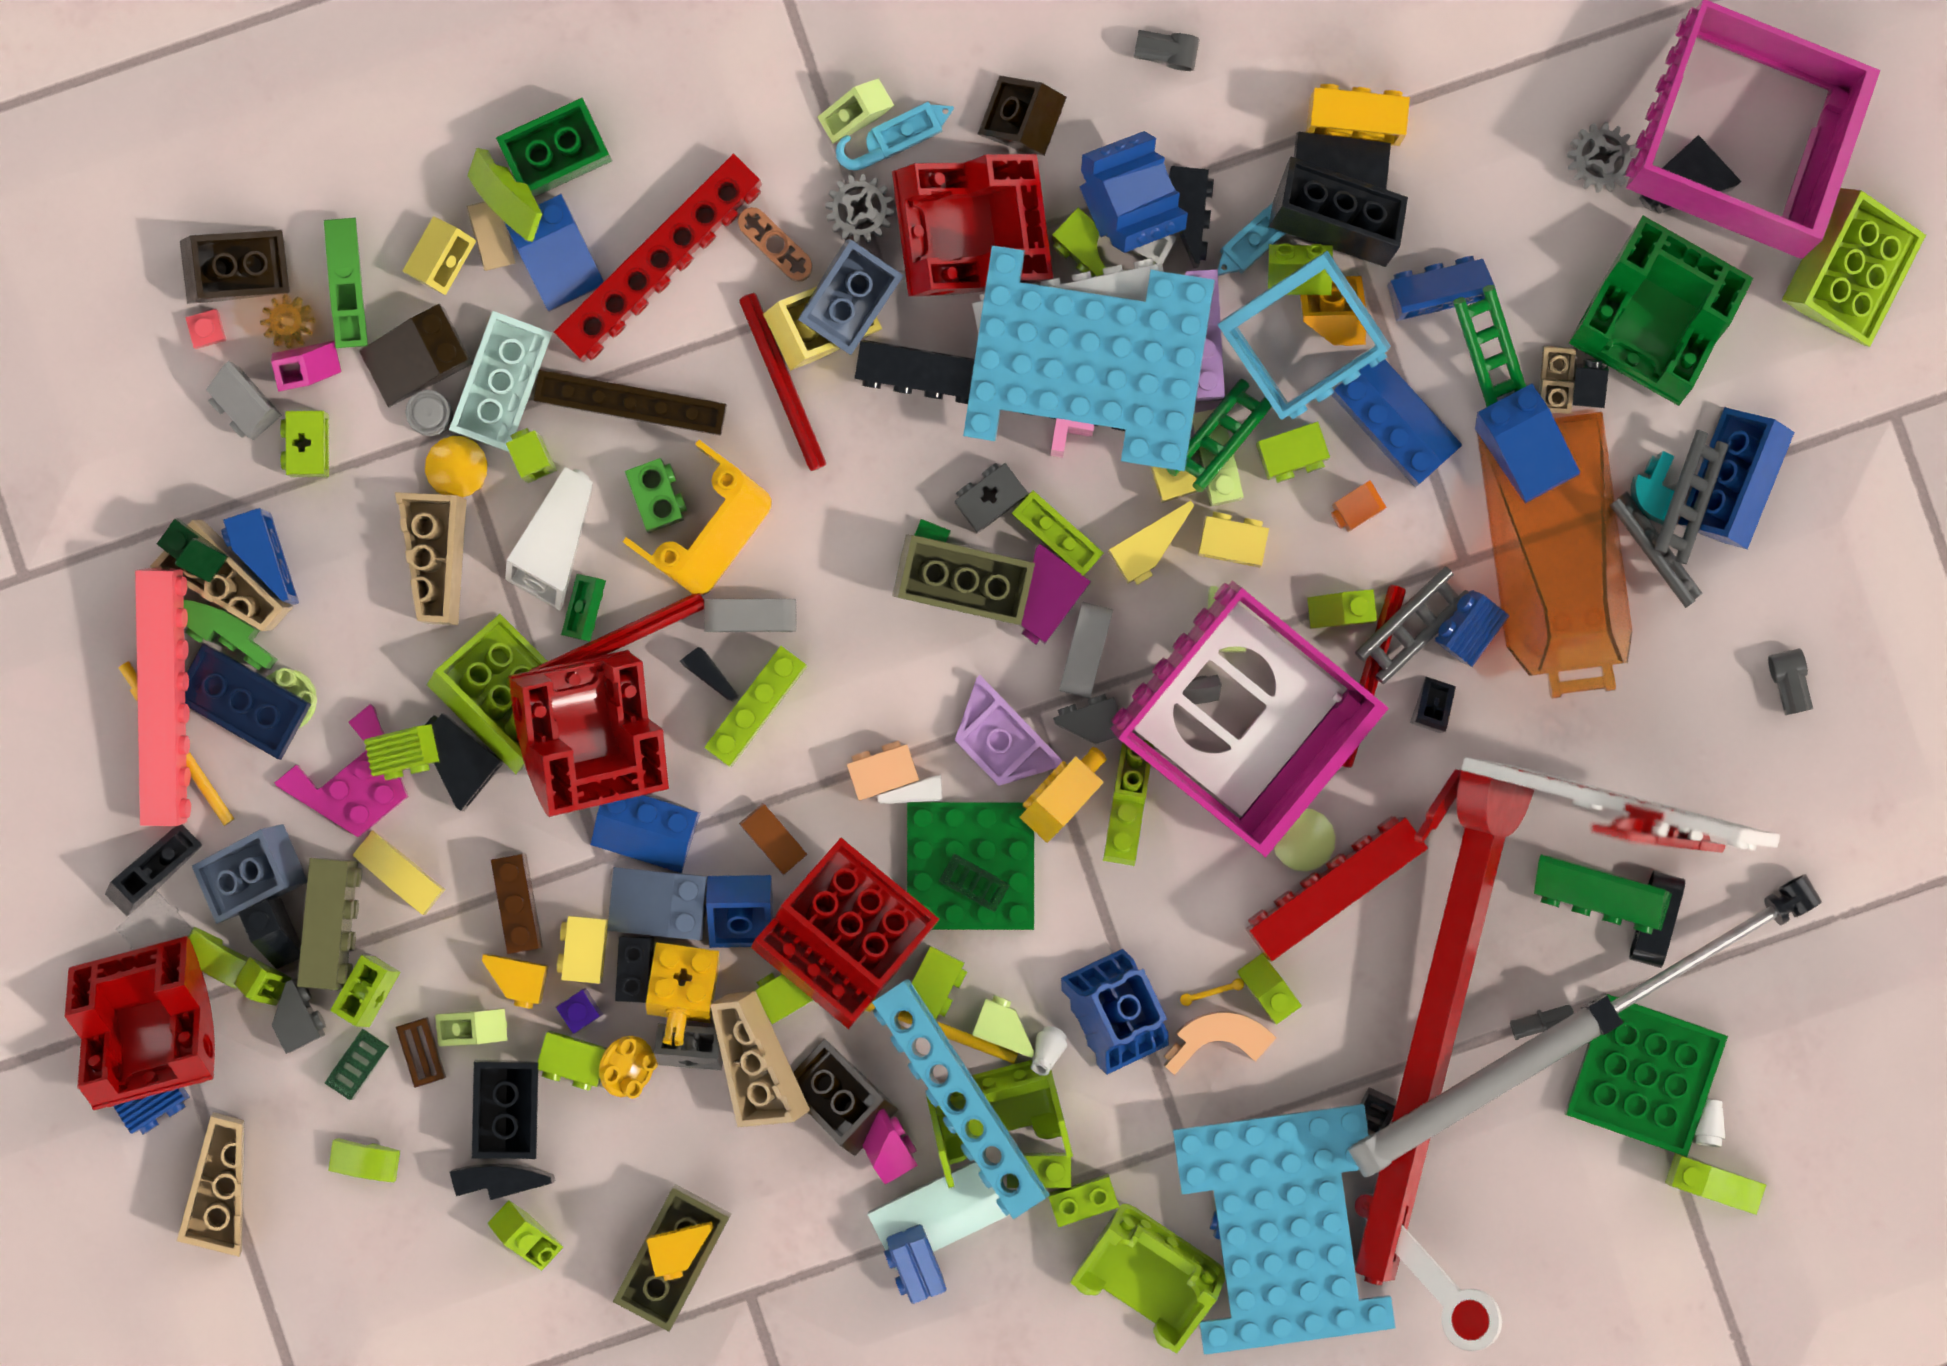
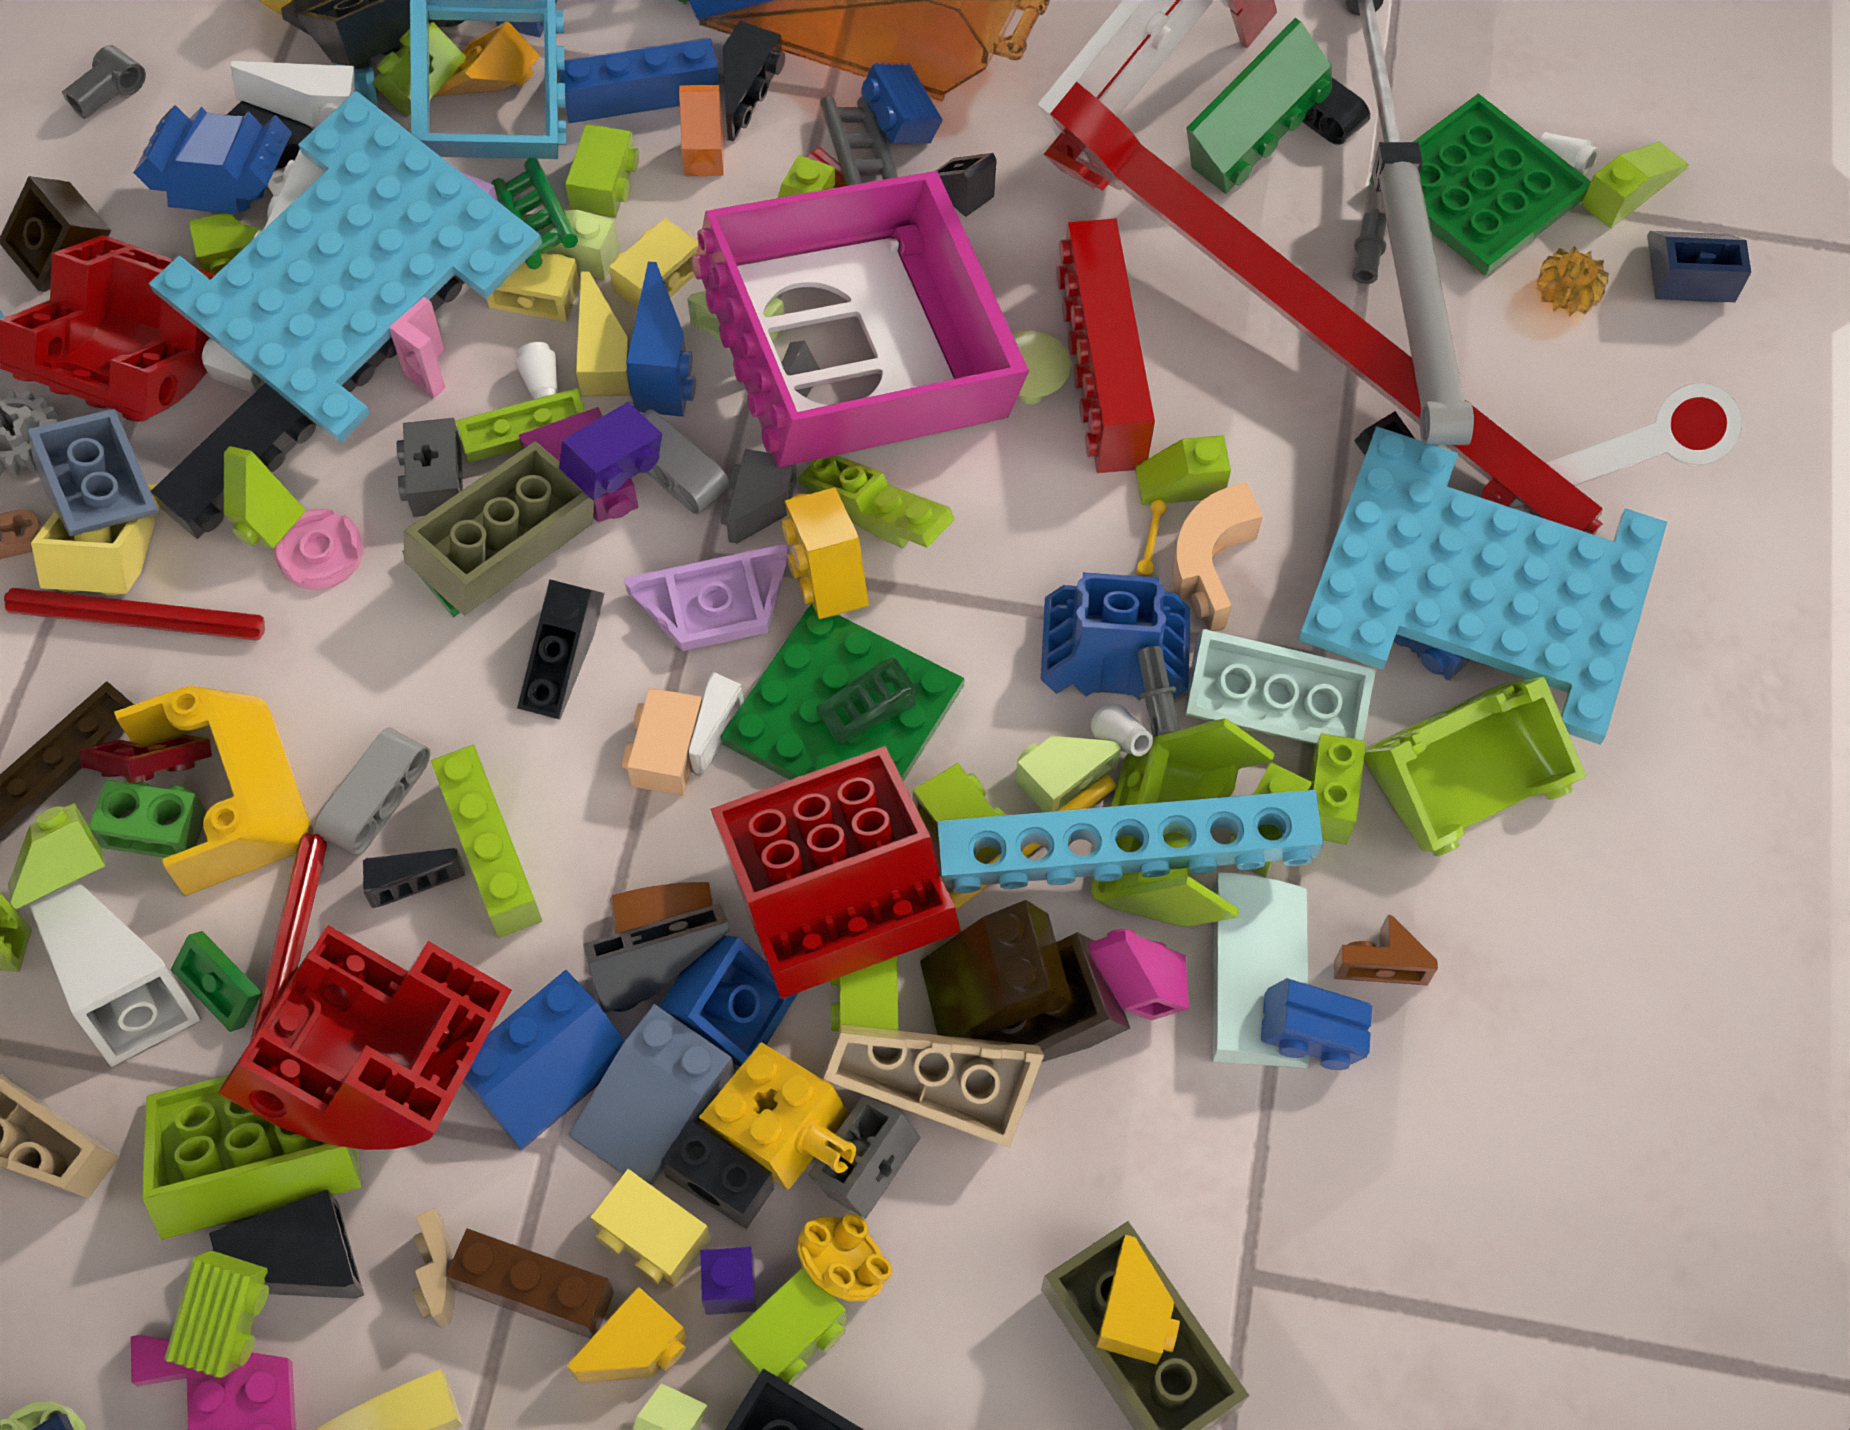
camera: 65 degrees left, 25 degrees down
(484, 852) = (435, 1293): none -> tan slope
(593, 468) = (53, 854): none -> lime slope
(682, 467) = (140, 761): none -> dark red plate
(737, 853) = (646, 958): none -> black slope
(836, 1064) = (996, 973): none -> dark brown slope
(894, 411) = (256, 500): none -> lime slope
(895, 462) = (320, 550): none -> bright pink tile
(911, 664) = (559, 647): none -> black slope
(988, 1292) = (1397, 960): none -> dark orange slope
(1051, 619) = (610, 451): none -> dark purple brick
(1079, 1062) = (1157, 692): none -> dark grey axle
(1103, 517) = (538, 369): none -> white cone
(1133, 1133) = (1277, 689): none -> light aqua slope
(1151, 598) = (657, 353): none -> blue slope
(1222, 217) = (294, 90): none -> white slope
(1447, 494) = (750, 62): none -> black slope
(1580, 1187) = (1572, 281): none -> clear yellow gear
(1656, 1257) = (1698, 266): none -> dark blue slope

